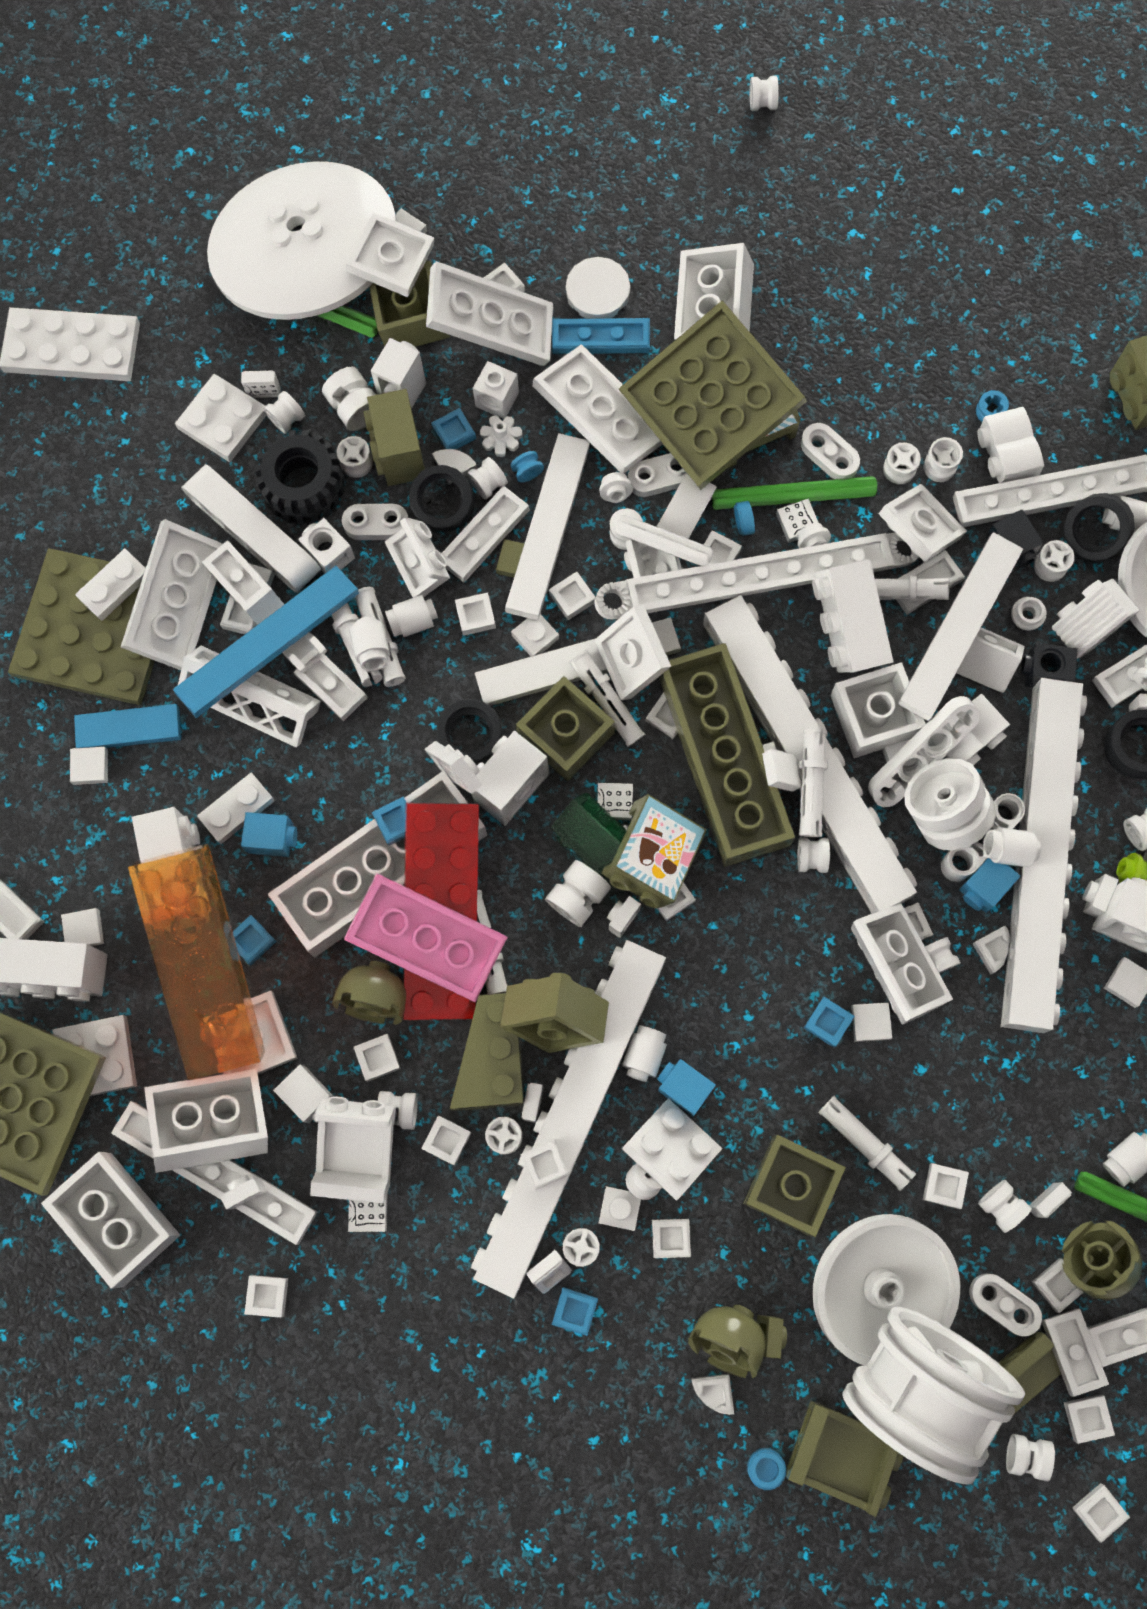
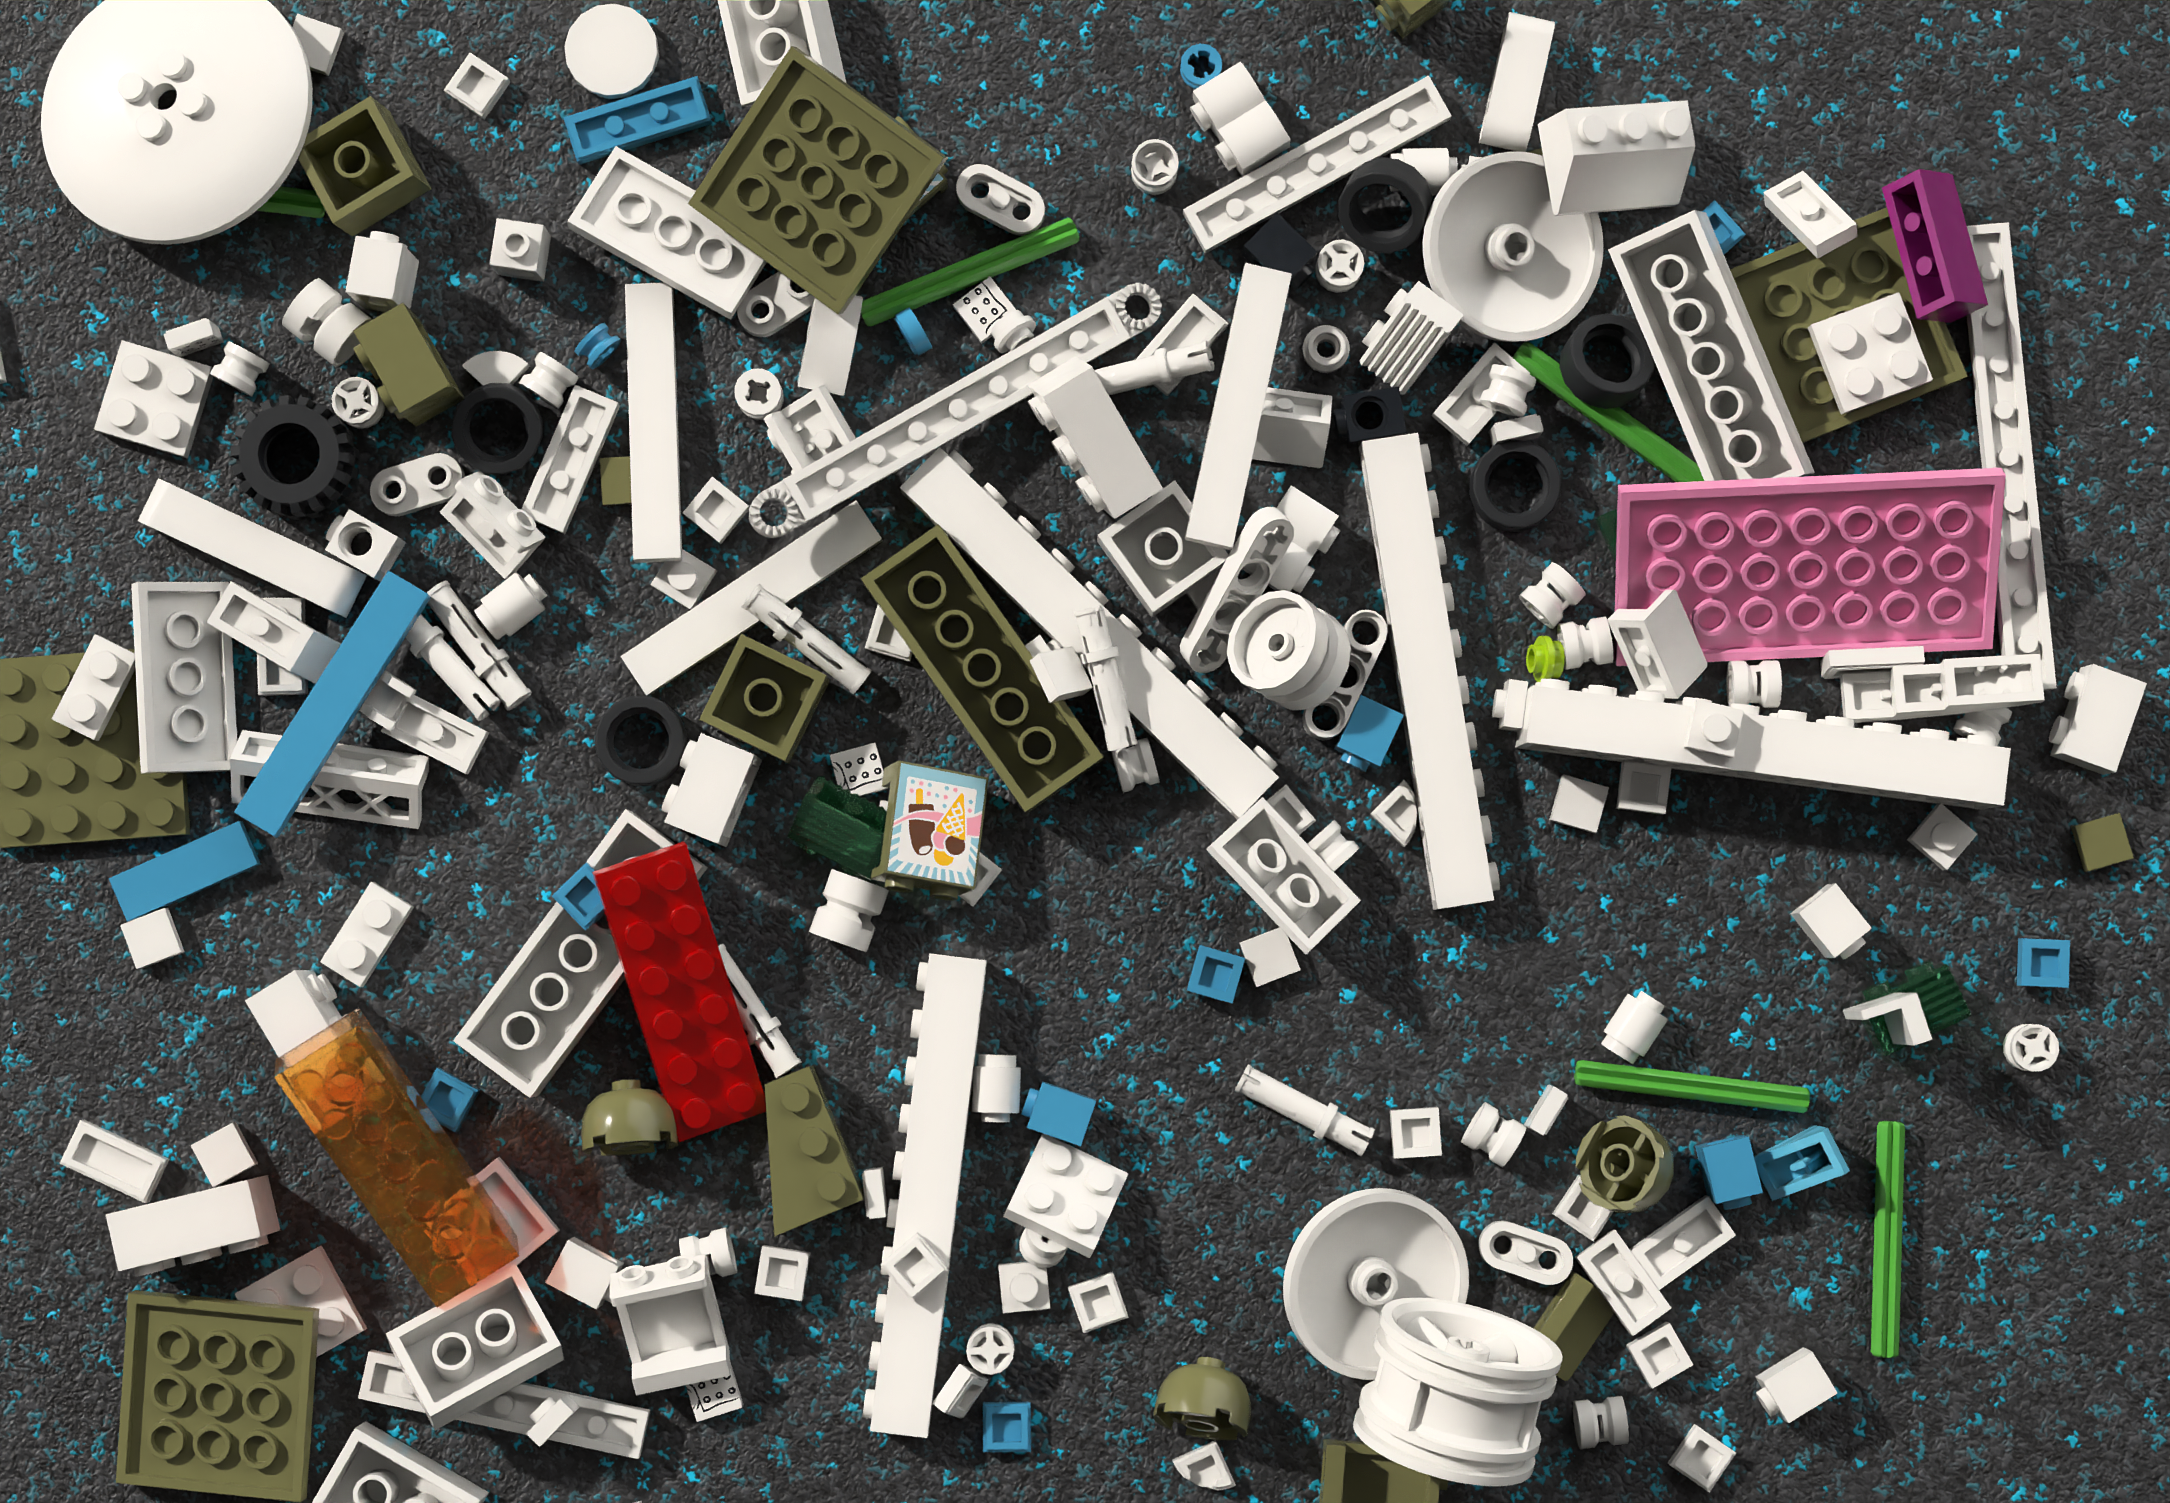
camera: 25 degrees left, 10 degrees up
(268, 834) = (424, 957): dark azure brick -> none
(369, 643) = (471, 667): white brick -> none
(377, 1057) = (661, 1198): white plate -> none
(390, 254) = (314, 110): white plate -> none
(425, 937) = (674, 1034): bright pink tile -> none
(453, 430) = (480, 321): dark azure tile -> none
(457, 766) = (639, 802): white plate -> none
(475, 614) = (595, 575): white plate -> none
(489, 314) = (478, 149): white plate -> none
(500, 435) = (550, 316): white plant -> none
(502, 1134) = (845, 1252): white wheel -> none
(555, 1013) = (868, 1077): olive brick -> none
(615, 487) = (727, 340): white plate -> none
(623, 915) = (915, 920): white plate -> none
(632, 652) = (821, 574): white plate -> none
(664, 540) = (815, 404): white axle -> none
(723, 548) = (892, 390): white plate -> none
(775, 1335) = (1256, 1378): olive plate -> none
(794, 1185) = (1228, 1193): olive brick -> none
(901, 455) = (1104, 179): white wheel -> none
(922, 522) = (1151, 268): white plate -> none
(1011, 847) = (1380, 685): white brick -> none

